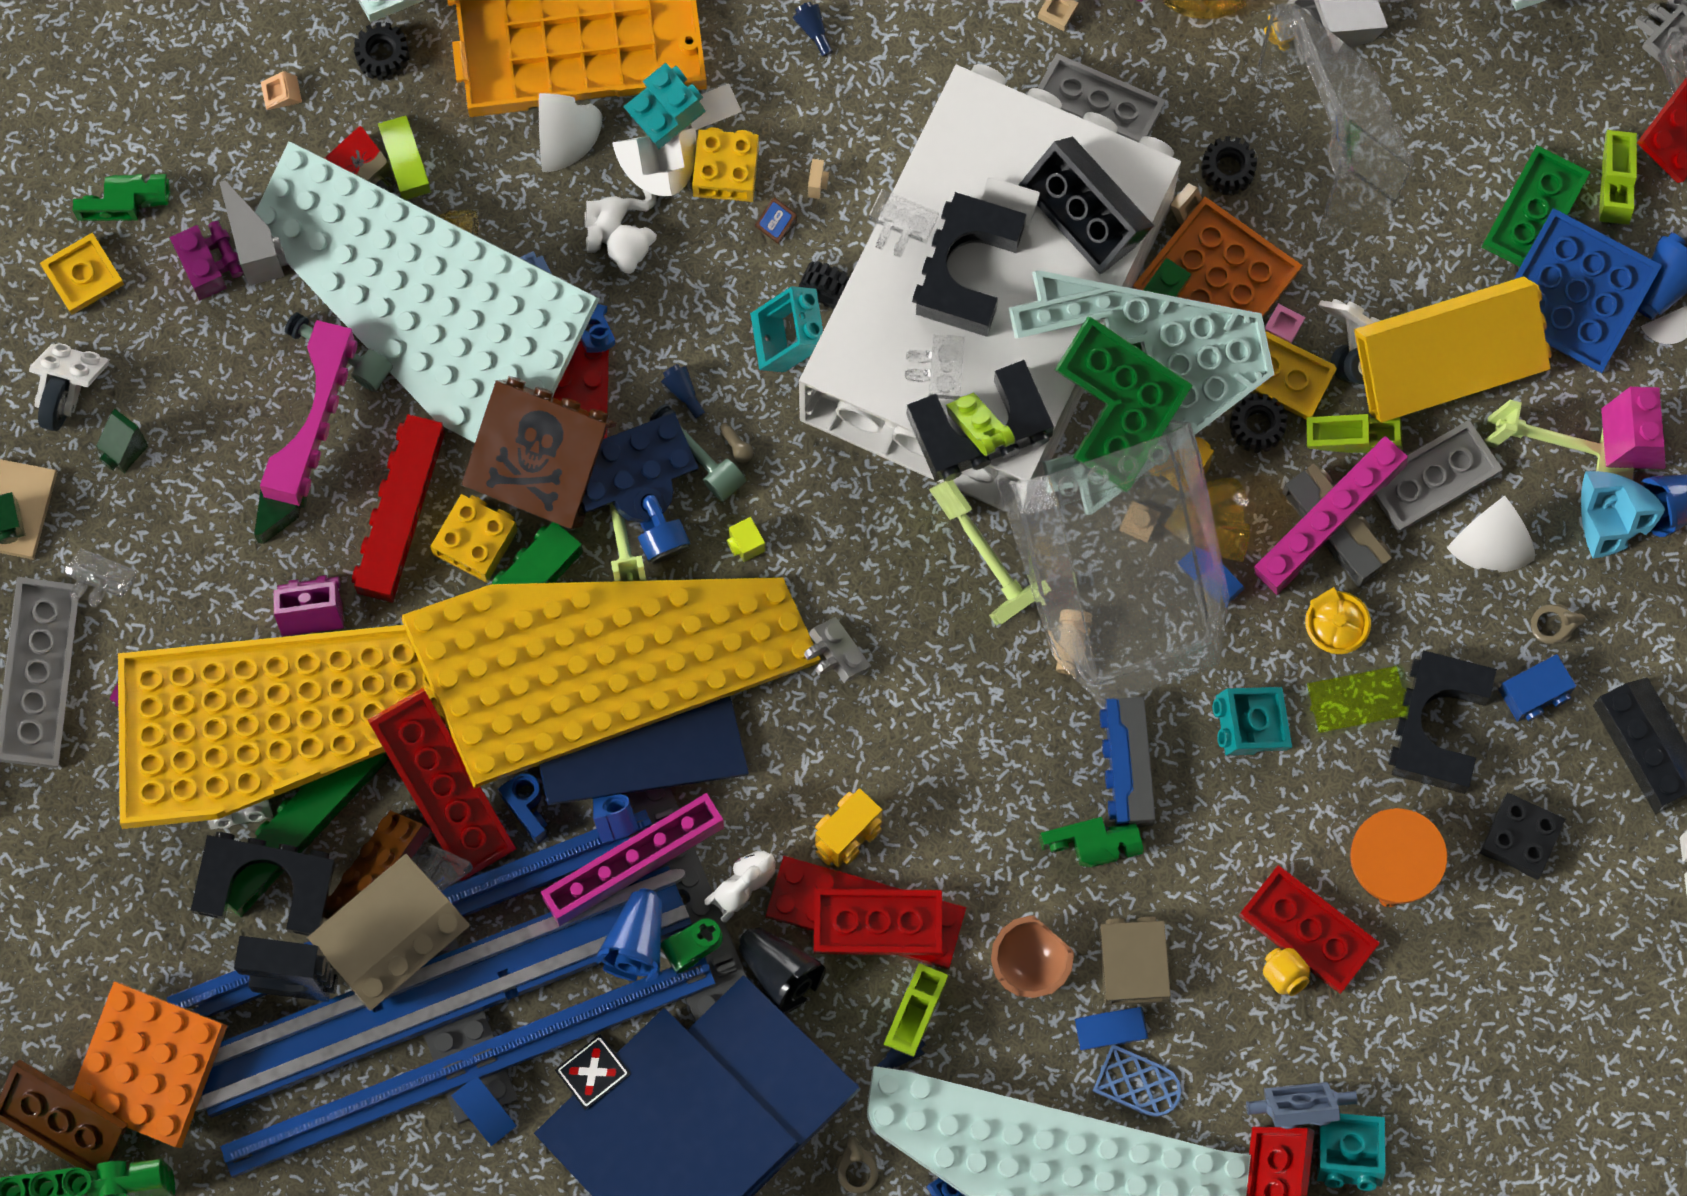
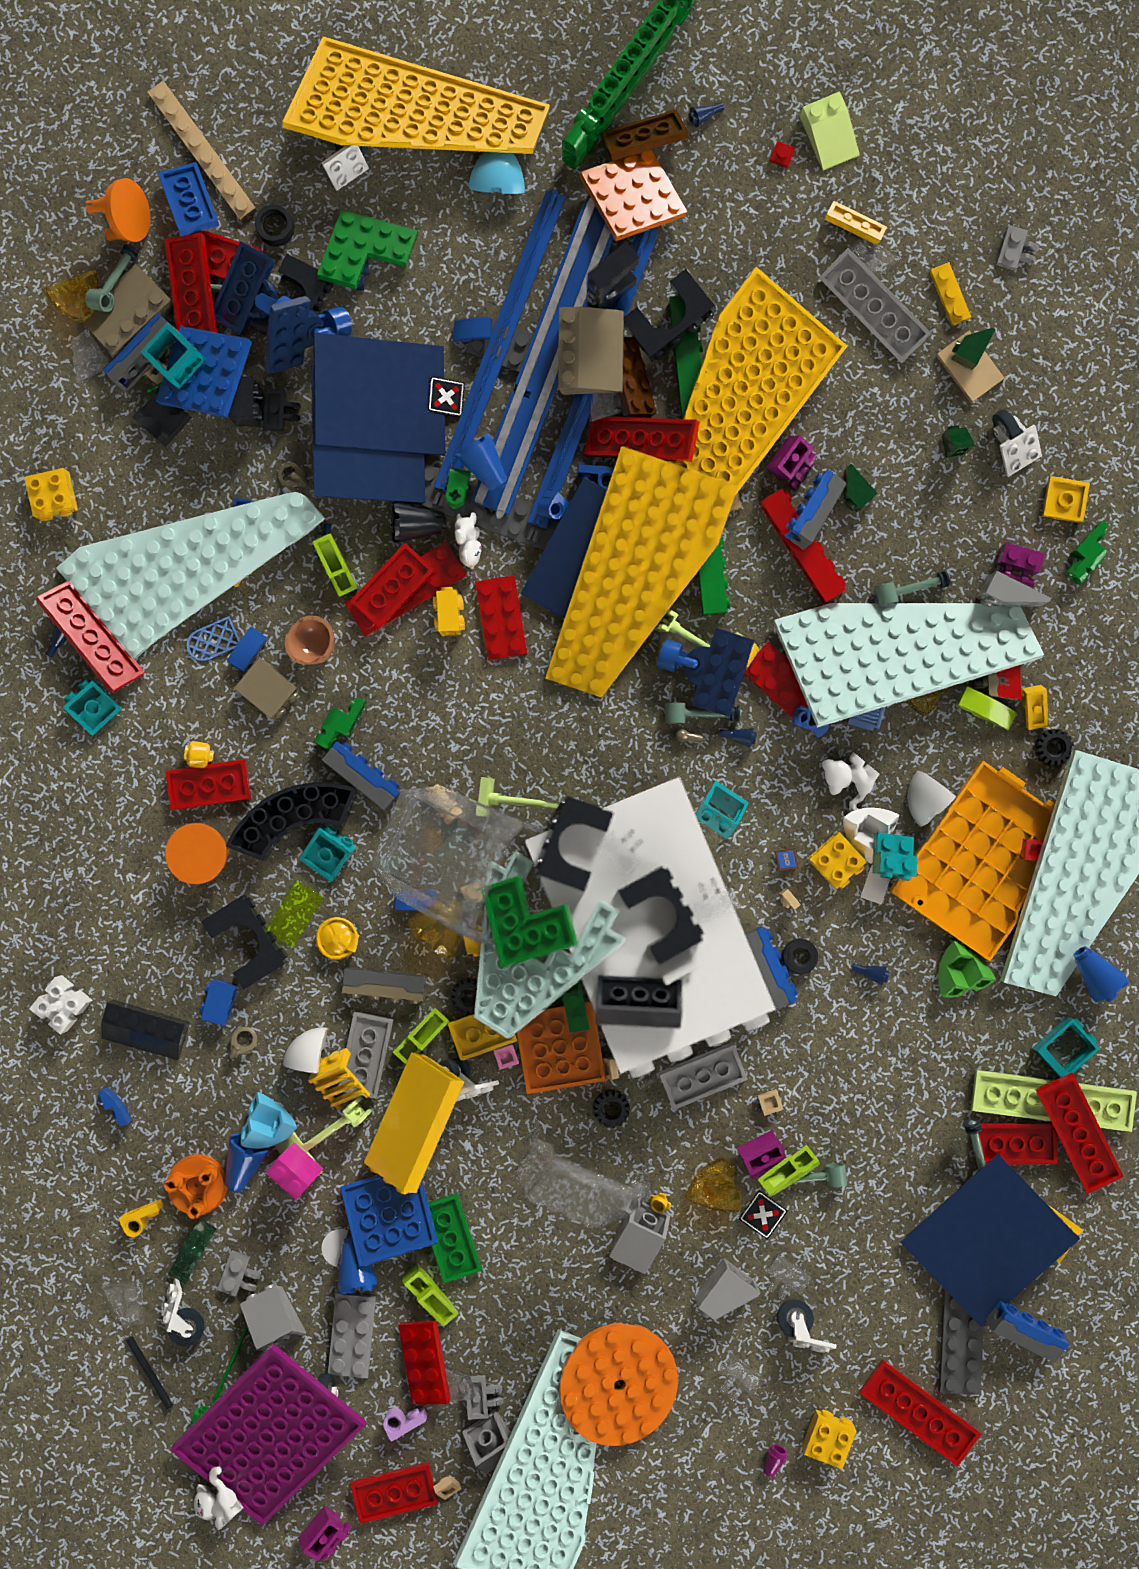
camera: 135 degrees right, 15 degrees up
(99, 573) = (898, 377): clear hinge -> none
(281, 90) = (1077, 680): light nougat slope -> none
(289, 469) = (910, 576): dark pink arch -> none
(345, 525) = (815, 509): none -> piece
(352, 107) = (1036, 708): none -> yellow plate
(474, 537) = (754, 568): yellow brick -> none
(536, 451) = (768, 631): reddish brown panel -> none
(632, 859) = (521, 493): dark pink brick -> none
(745, 540) = (636, 695): neon yellow plate -> none
(796, 773) = (501, 617): none -> red plate
(826, 280) = (728, 851): black tyre -> none
(838, 649) = (541, 690): light grey hinge -> none
(874, 99) = (811, 950): none -> black tyre
(911, 122) = (770, 968): none -> piece
(979, 424) = (571, 839): lime plate -> none
(1250, 803) = (287, 811): none -> black brick
(1302, 1104) = (130, 701): sand blue plate -> none
(1329, 514) = (388, 984): dark pink arch -> none
(1489, 476) = (333, 1071): none -> yellow plate
(1522, 835) = (158, 926): black brick -> none

